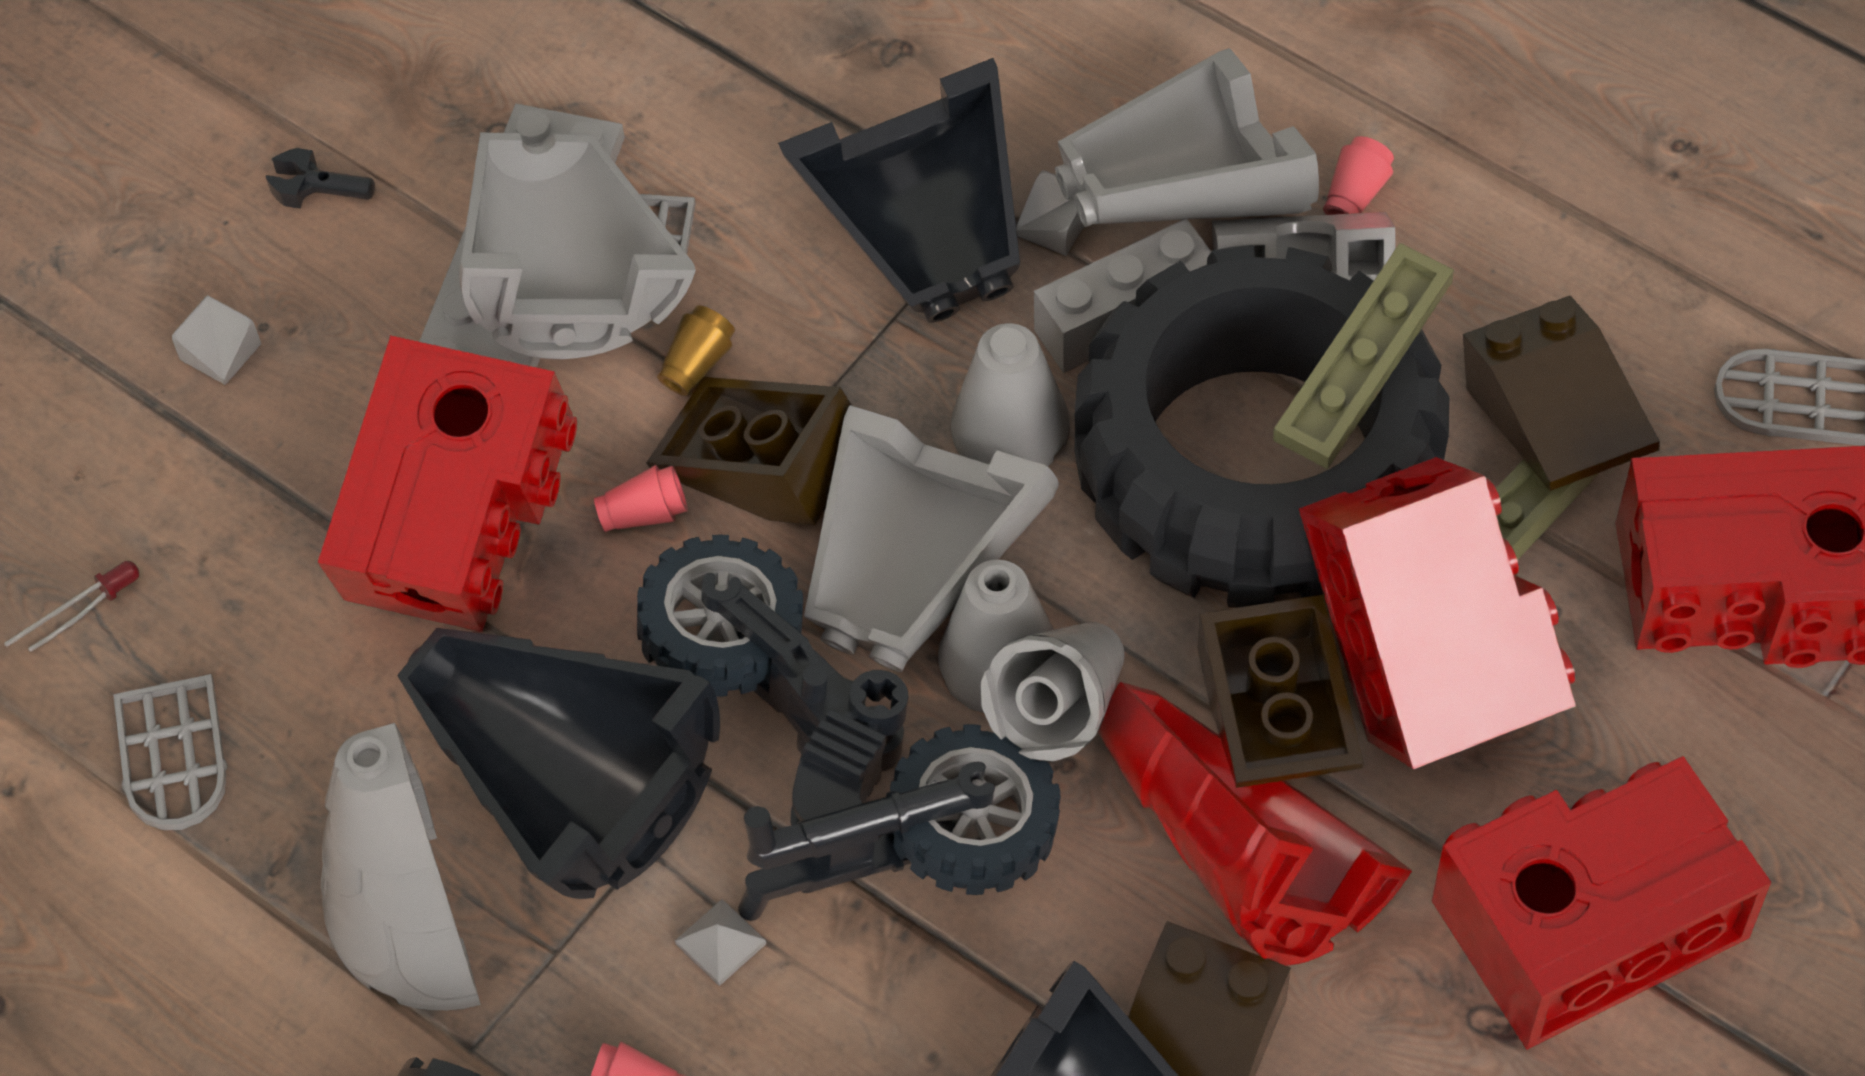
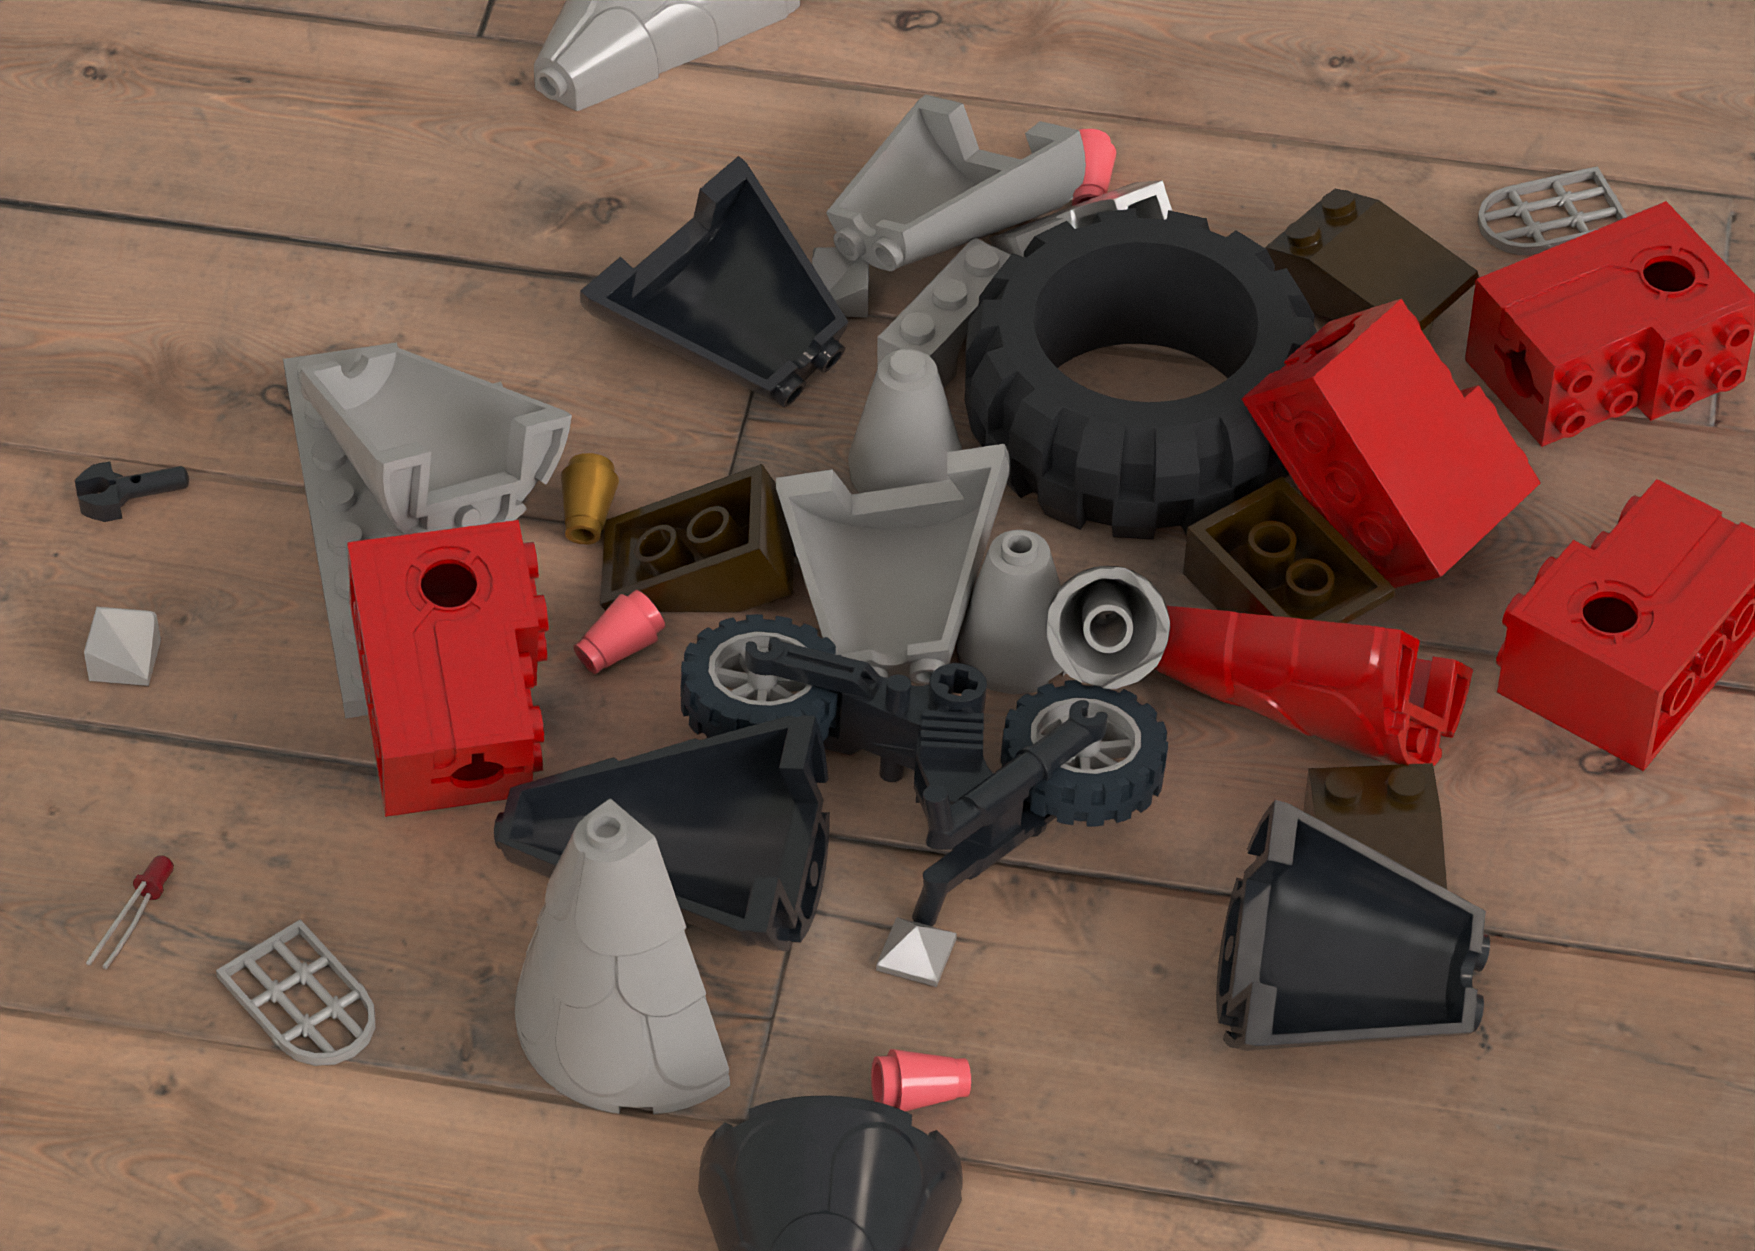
camera: 30 degrees left, 10 degrees down
(1363, 355) = (1221, 266): olive plate -> none

